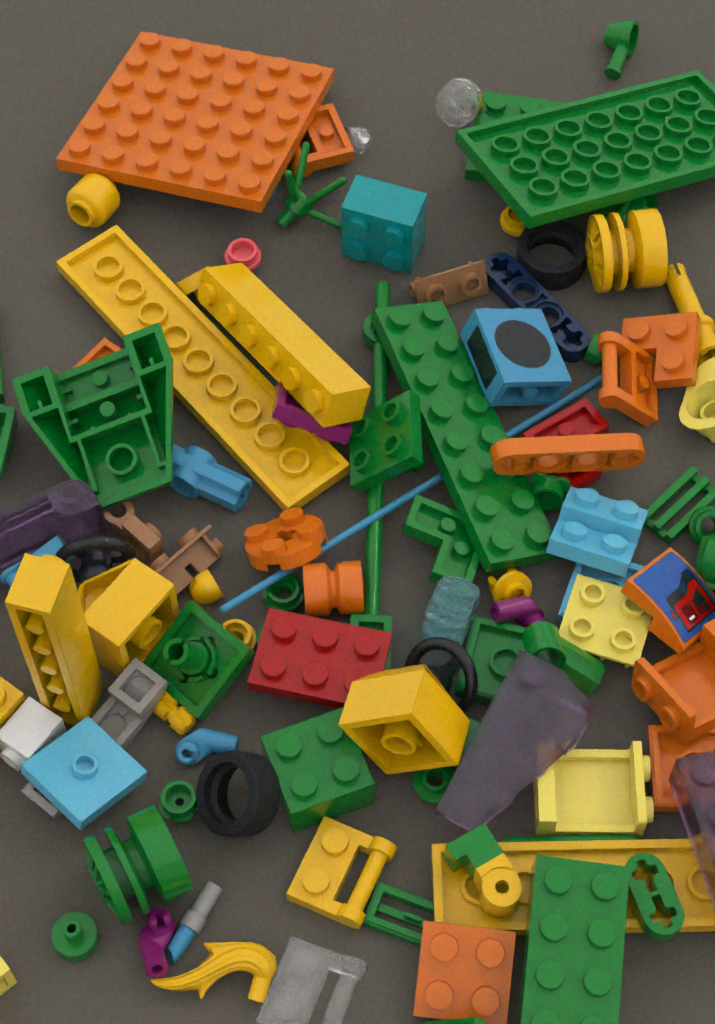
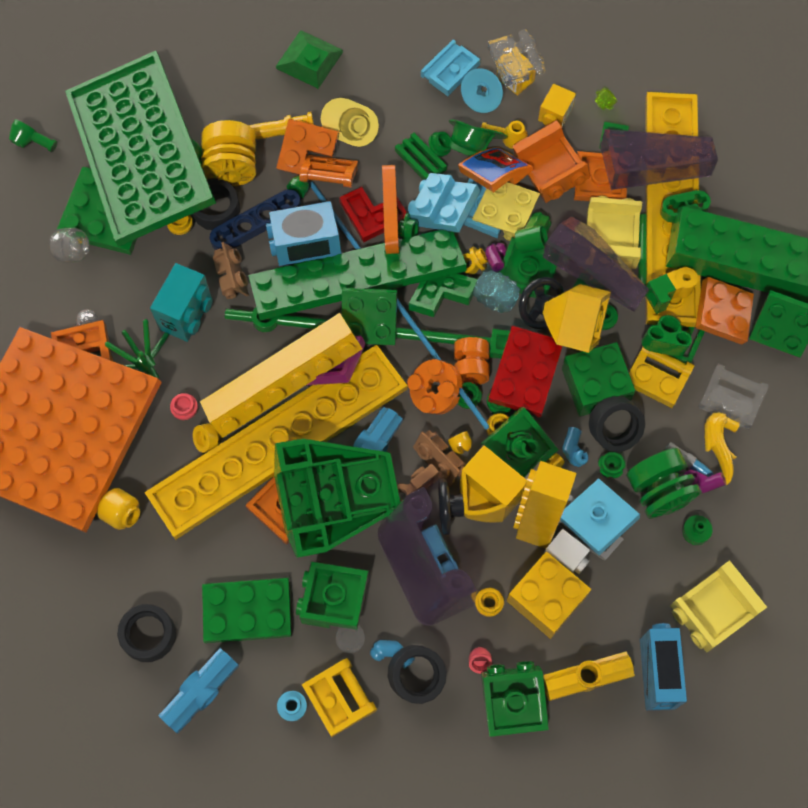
camera: 85 degrees left, 10 degrees up
(388, 869) = (672, 343): none -> green piece

